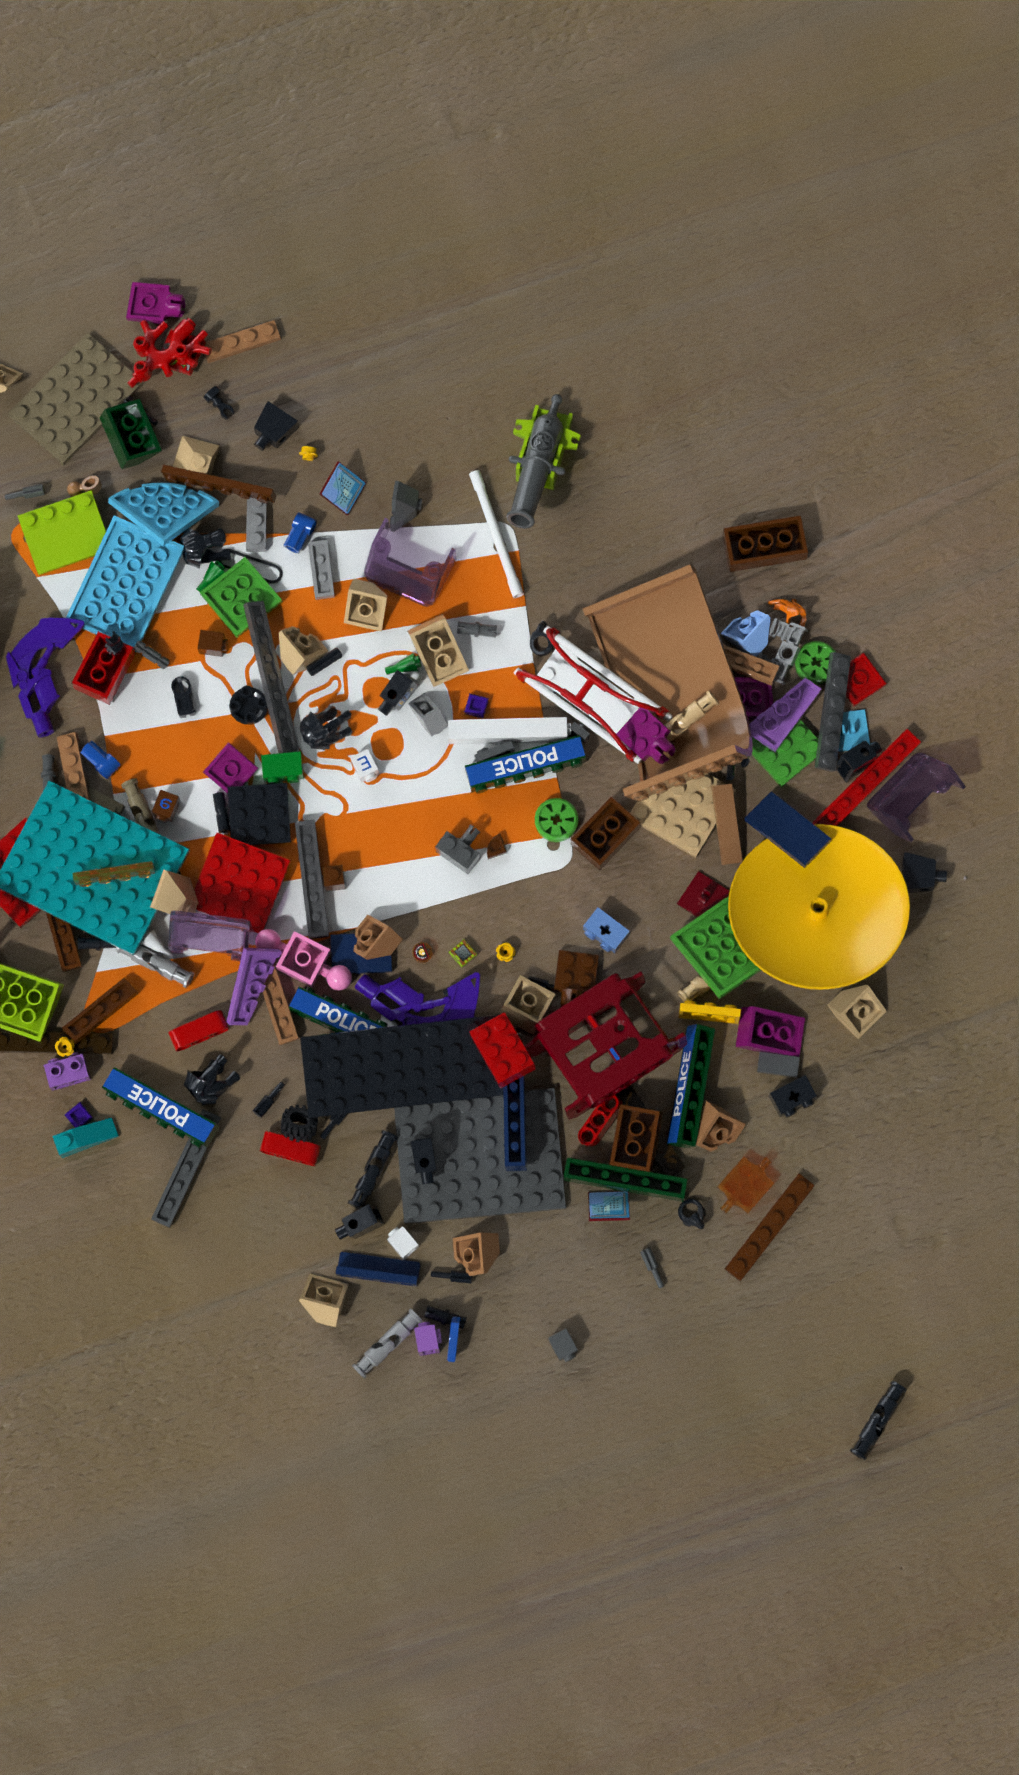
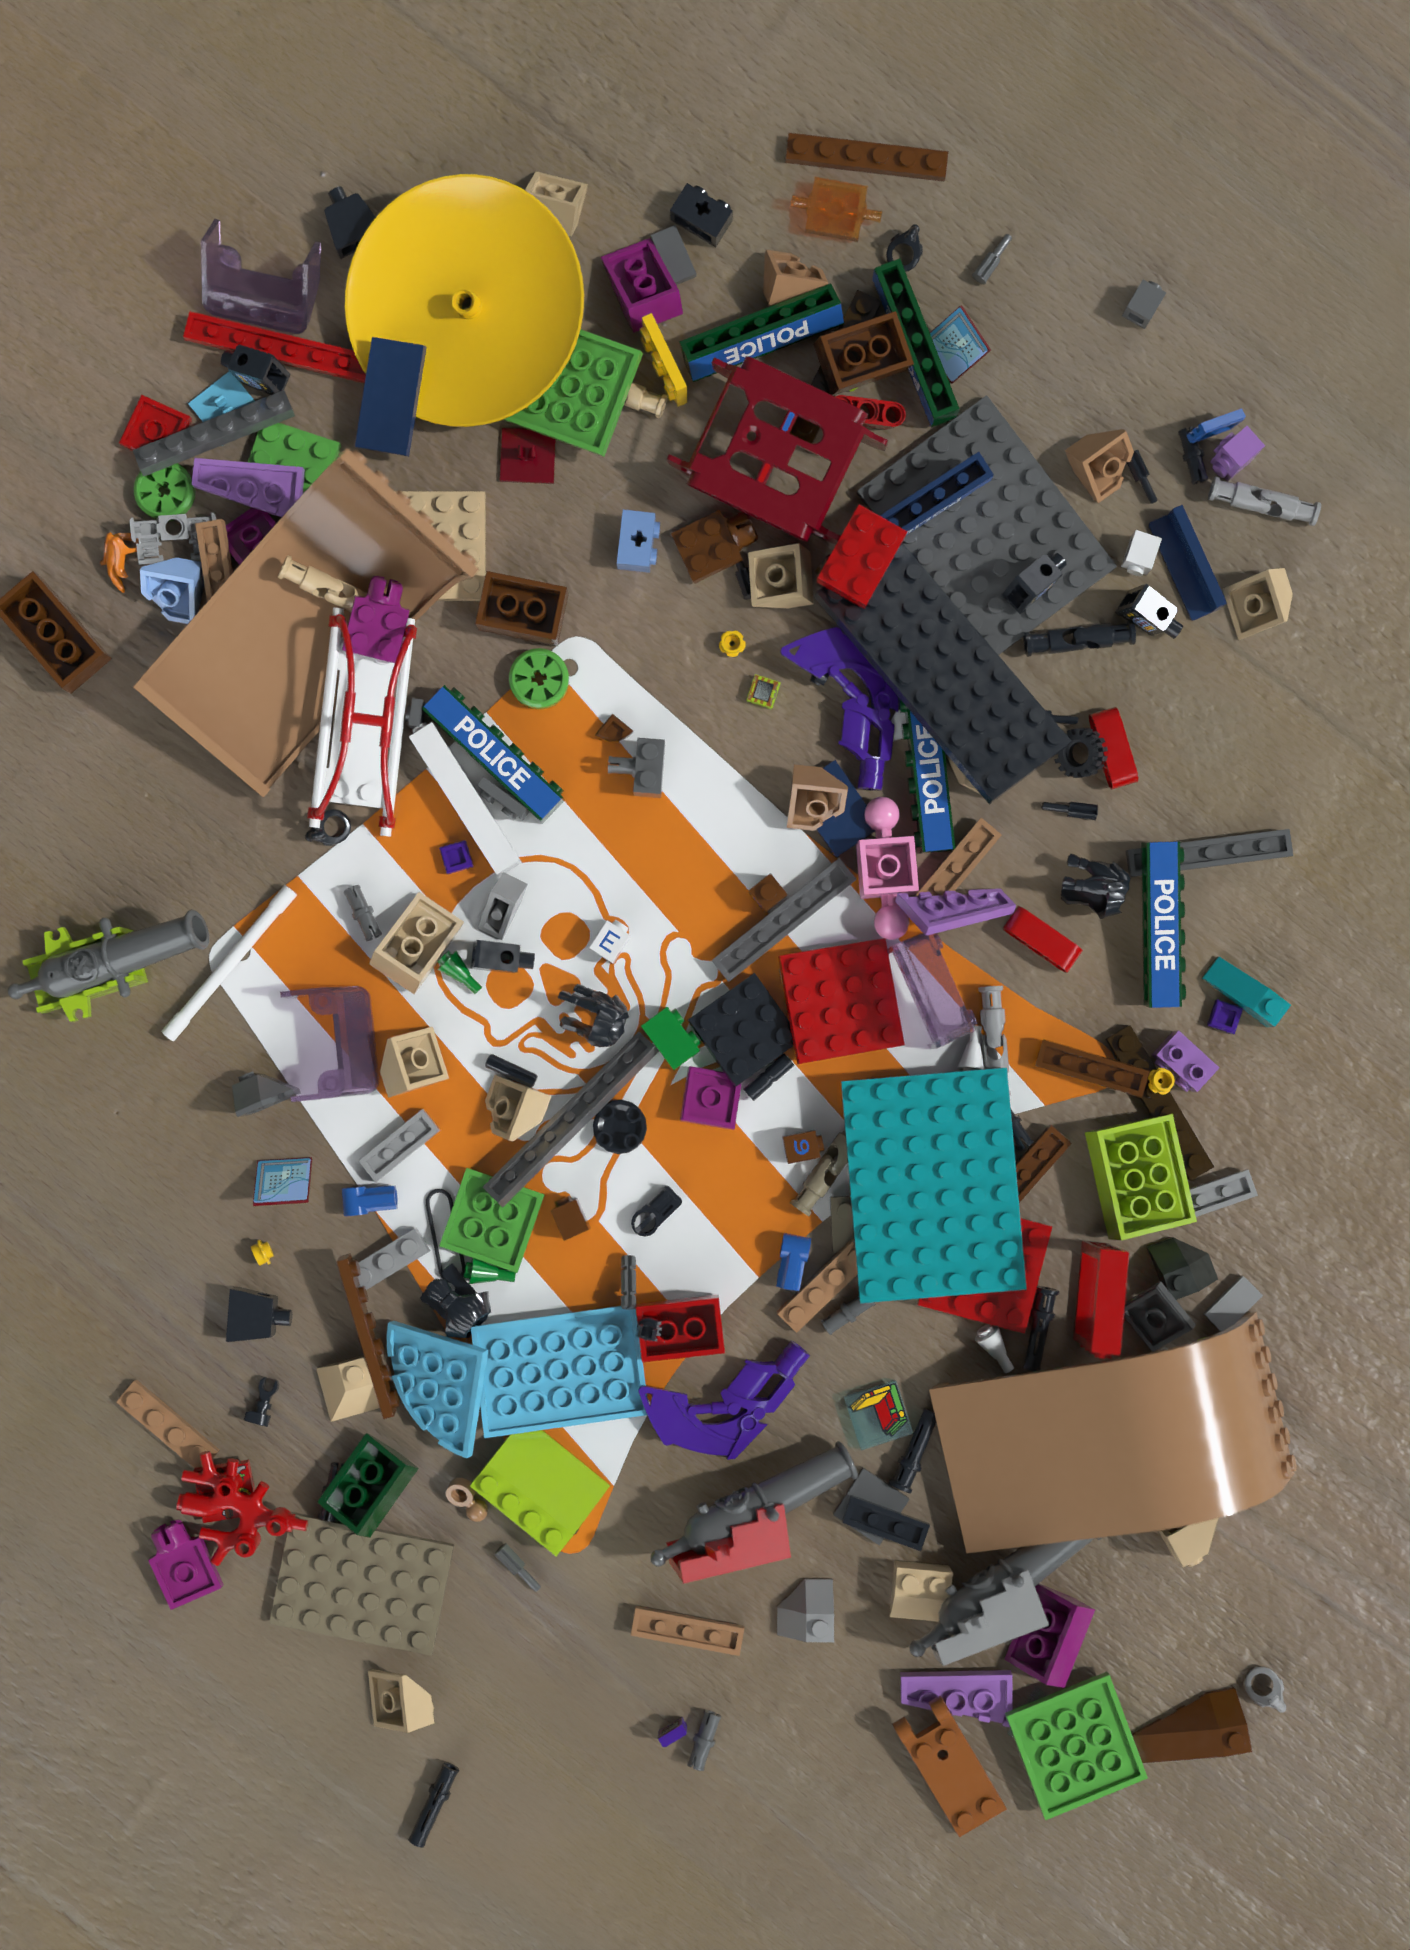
camera: 125 degrees left, 10 degrees up
(122, 873) = (923, 1137): clear orange plate -> none
(174, 894) = (906, 1061): tan slope -> none
(422, 952) = (791, 739): tile -> none
(726, 824) = (434, 469): medium nougat tile -> none

